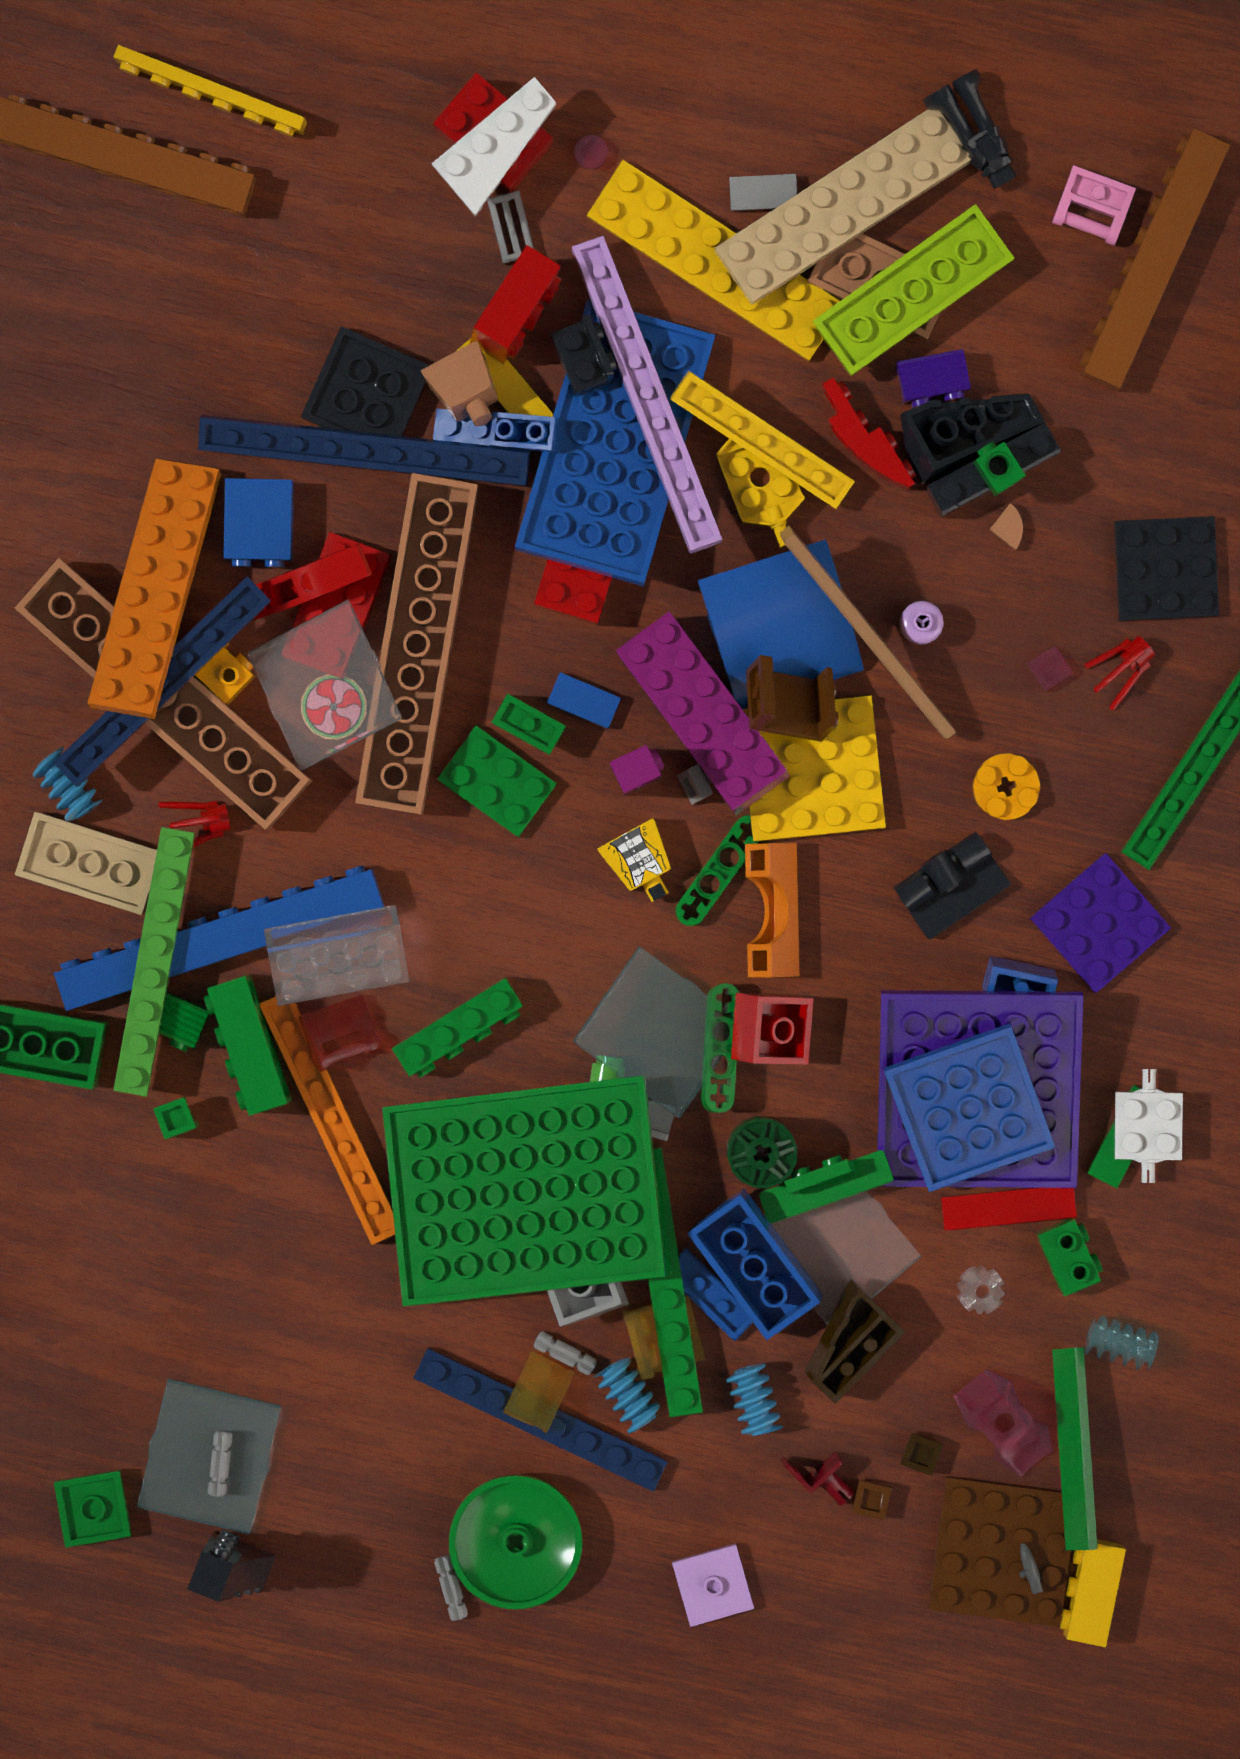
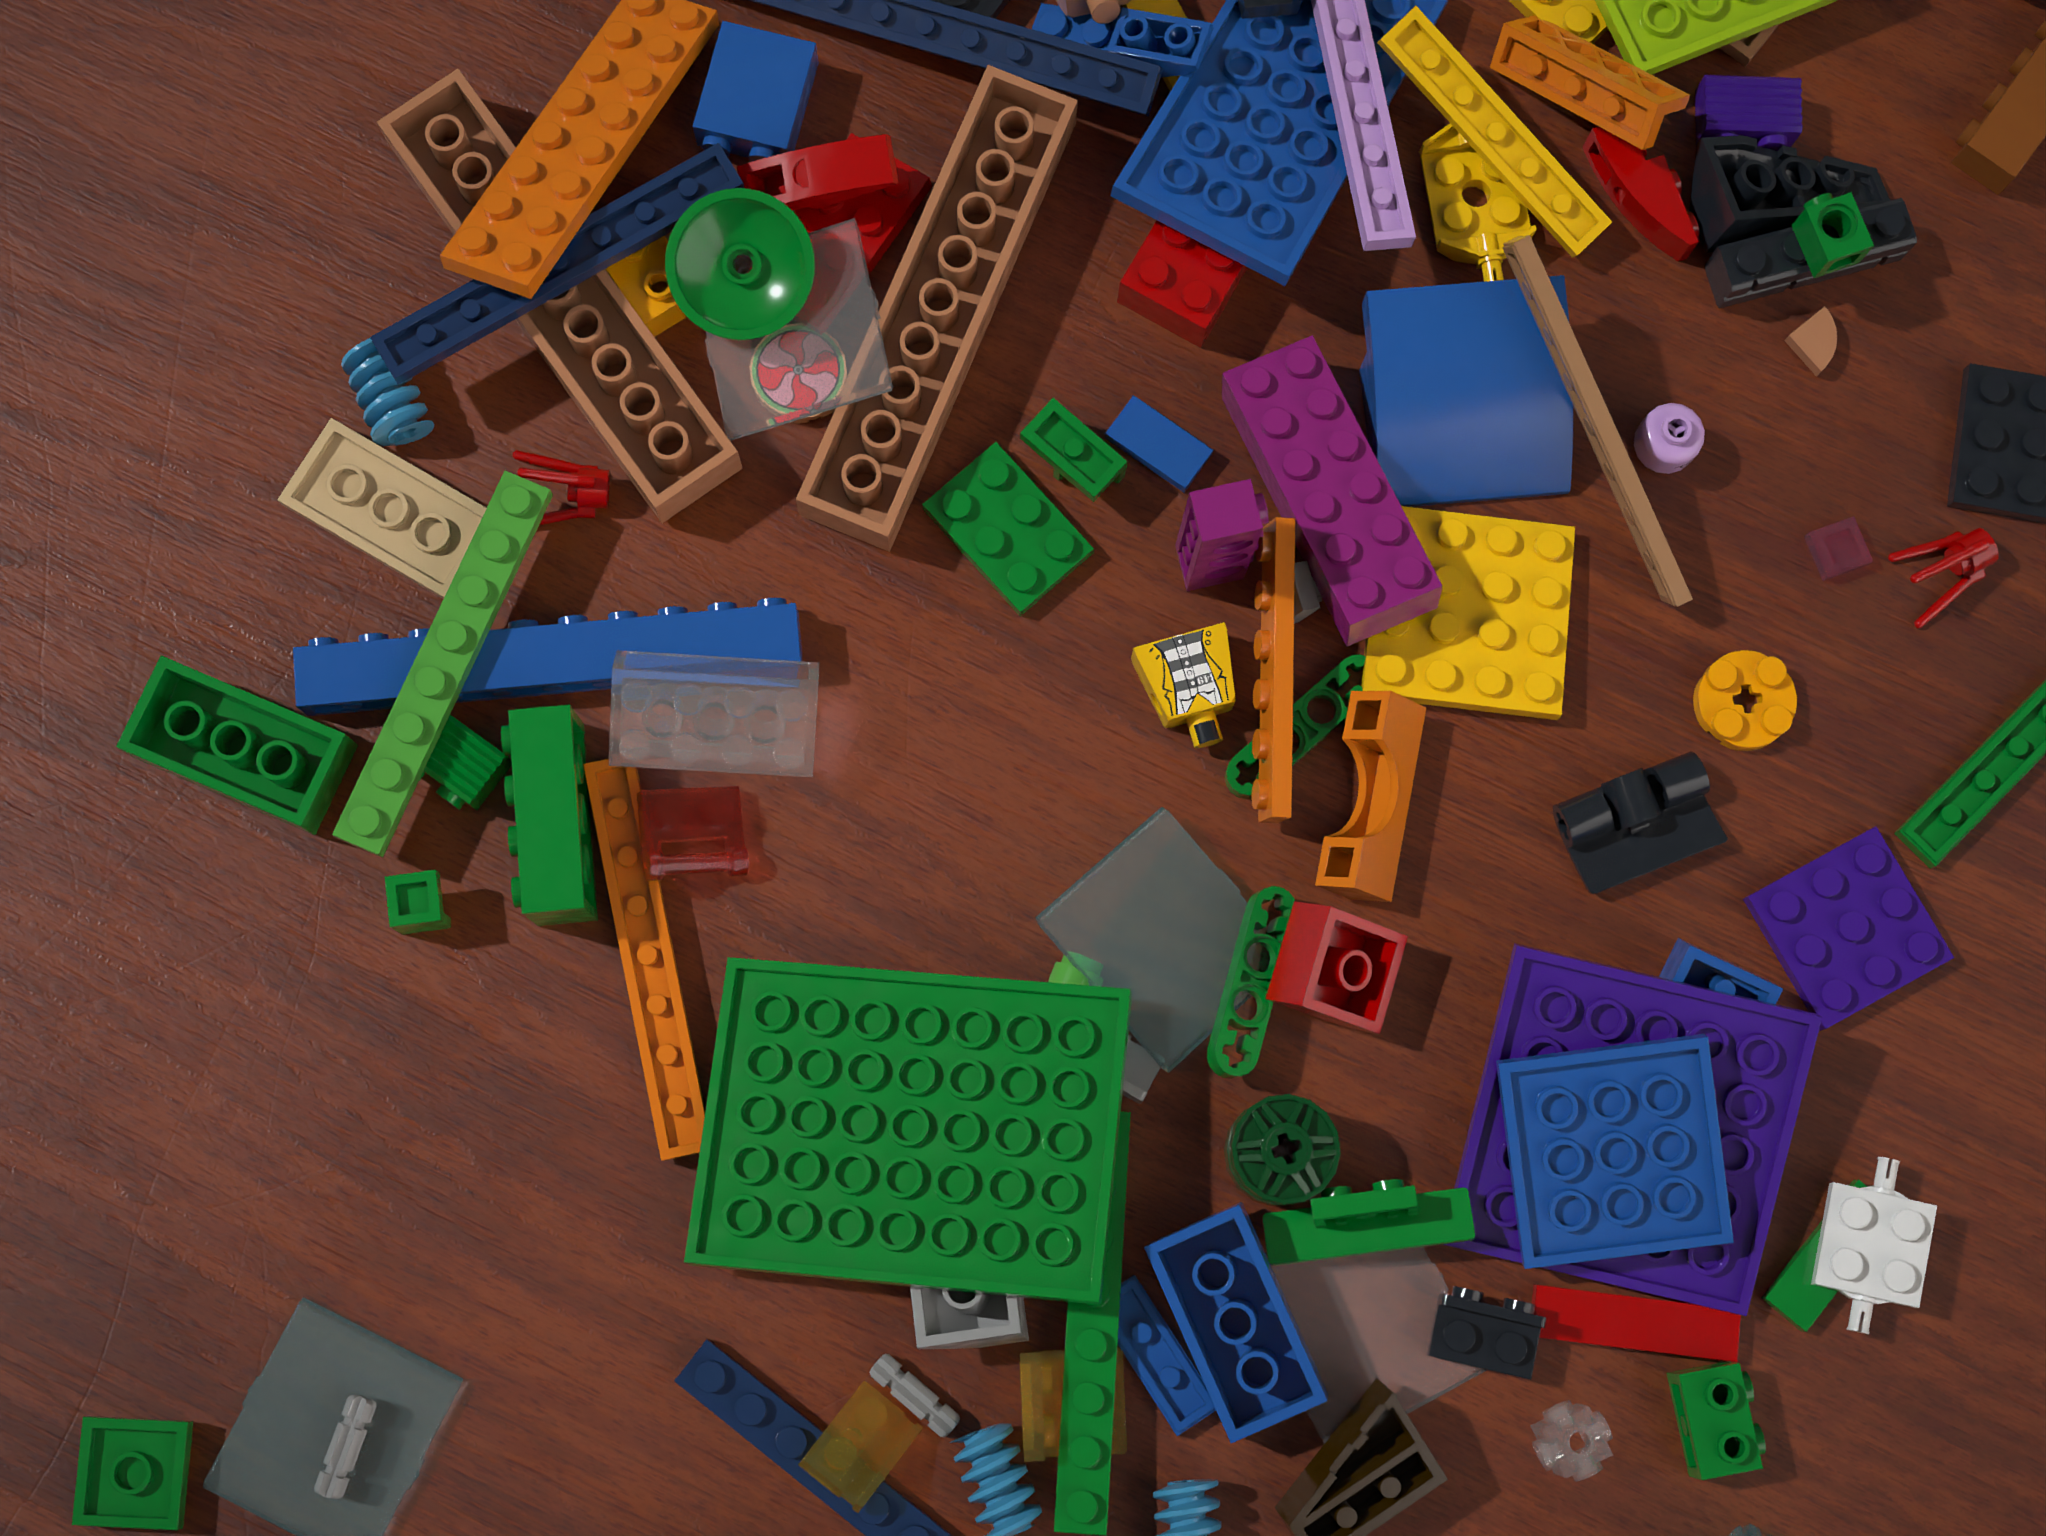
camera: 10 degrees right, 10 degrees down
(286, 675) = (704, 272): none -> green dish
(457, 1027) = (867, 863): green brick -> none
(689, 830) = (1275, 687): none -> orange plate
(789, 702) = (1459, 503): reddish brown panel -> none
(811, 387) = (1586, 79): none -> orange fence
(914, 1235) = (1485, 1334): none -> black bracket

